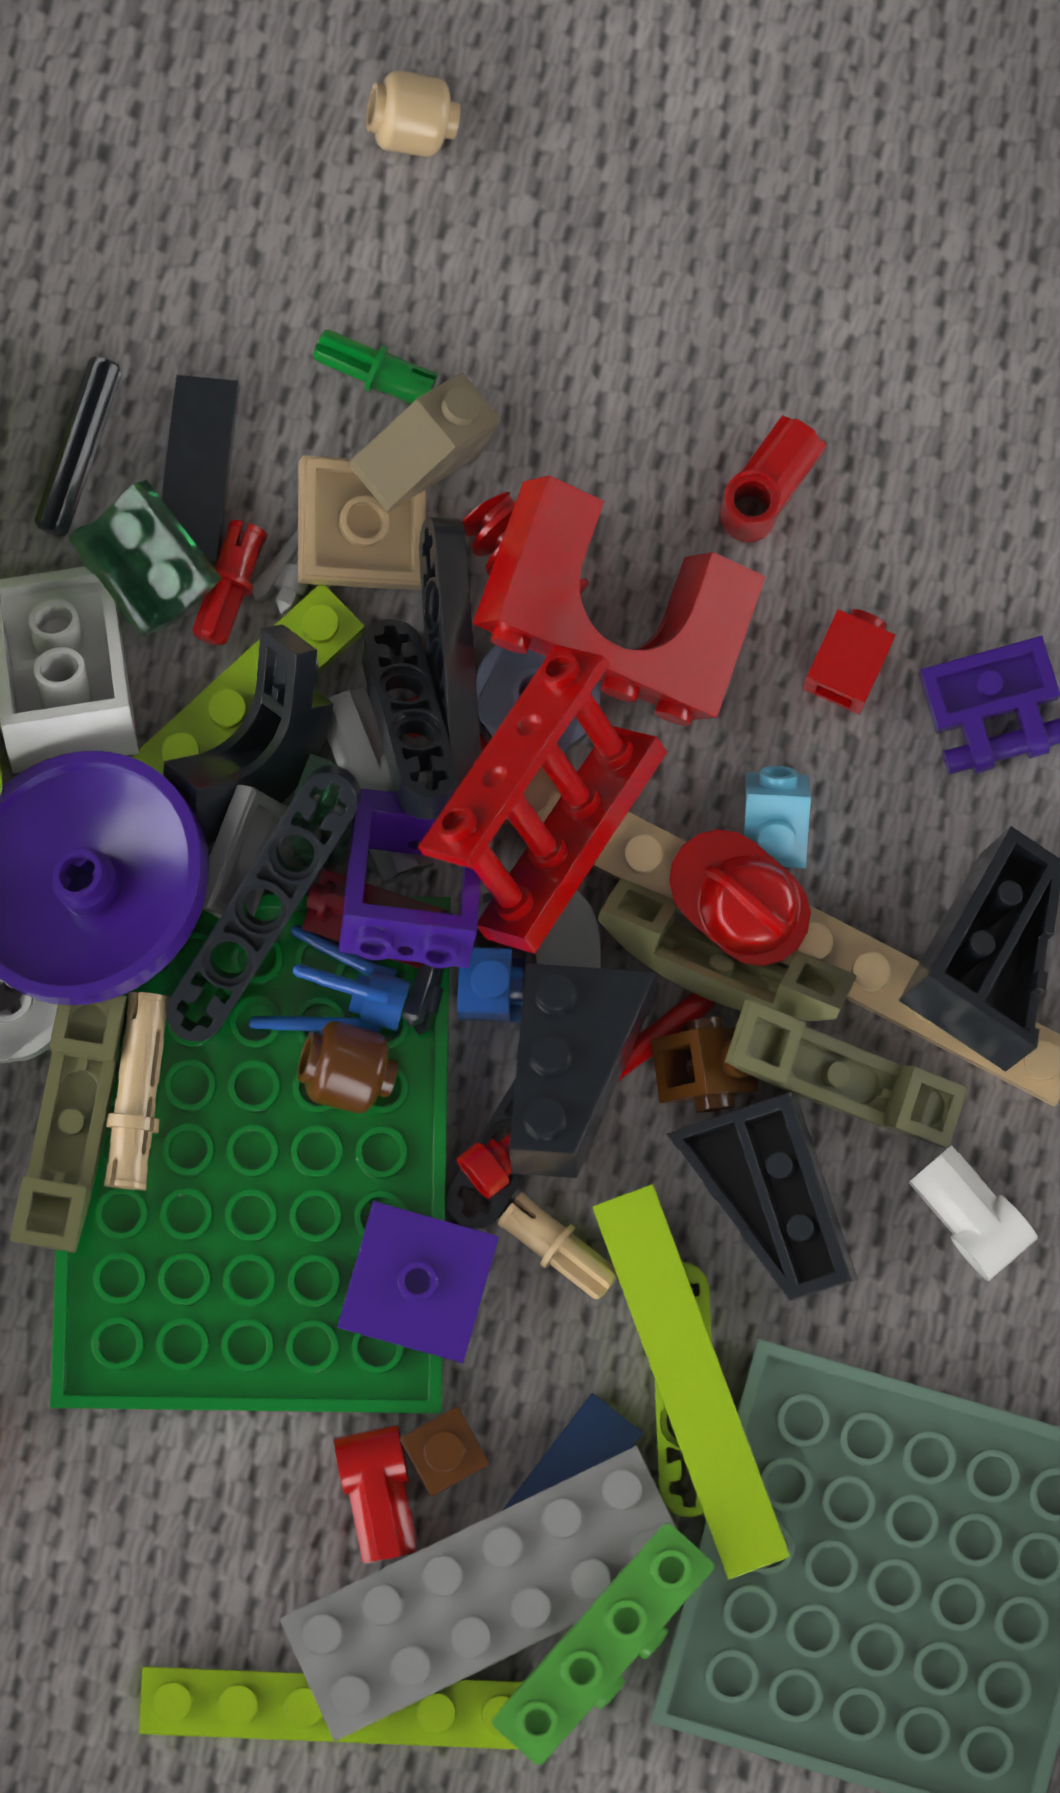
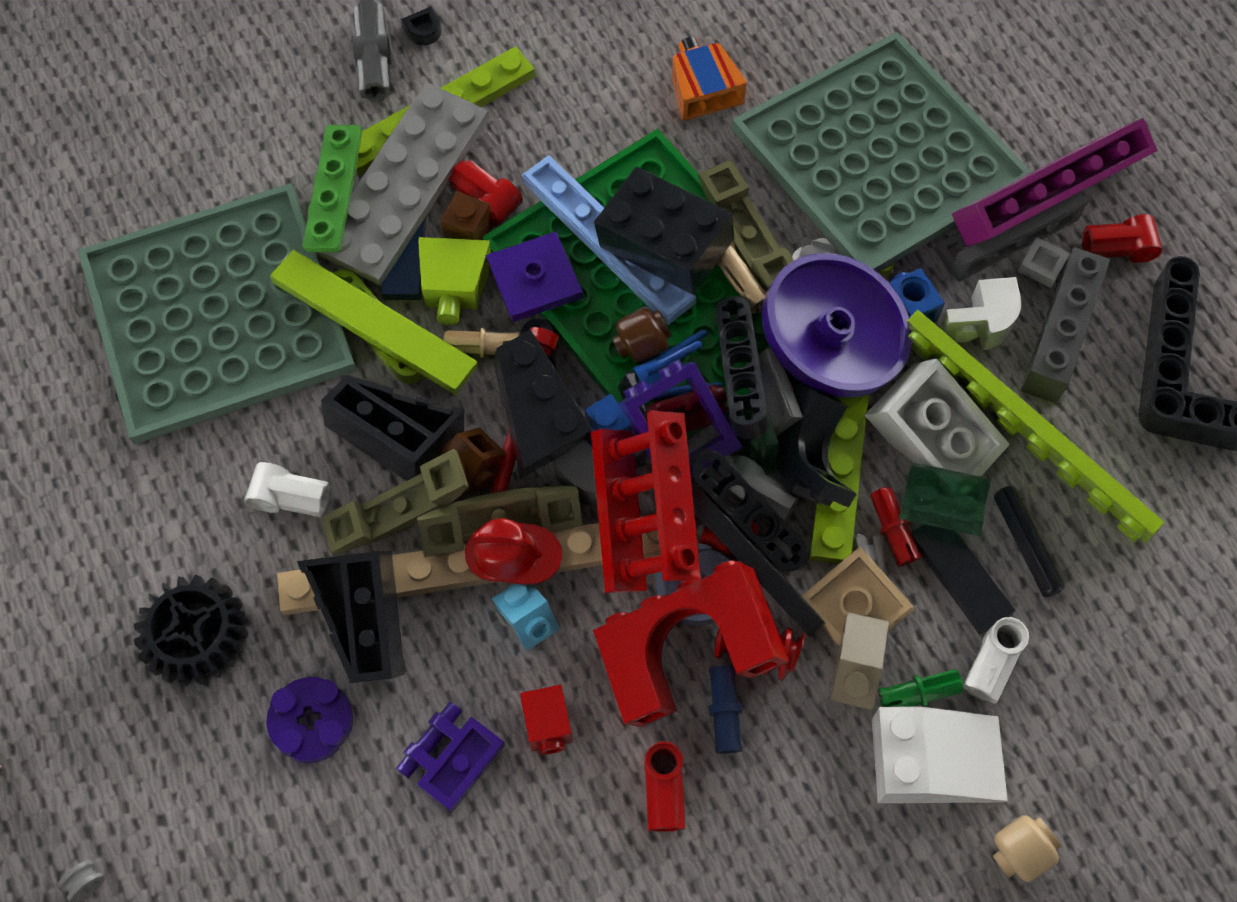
camera: 140 degrees right, 15 degrees down
(200, 1184) = (665, 230): none -> black brick
(259, 330) = (995, 661): none -> white piece
(270, 1270) = (578, 212): none -> light blue tile
(422, 281) = (937, 756): none -> white slope
(526, 1380) = (453, 275): none -> lime torso
(626, 516) = (725, 709): none -> dark blue pin

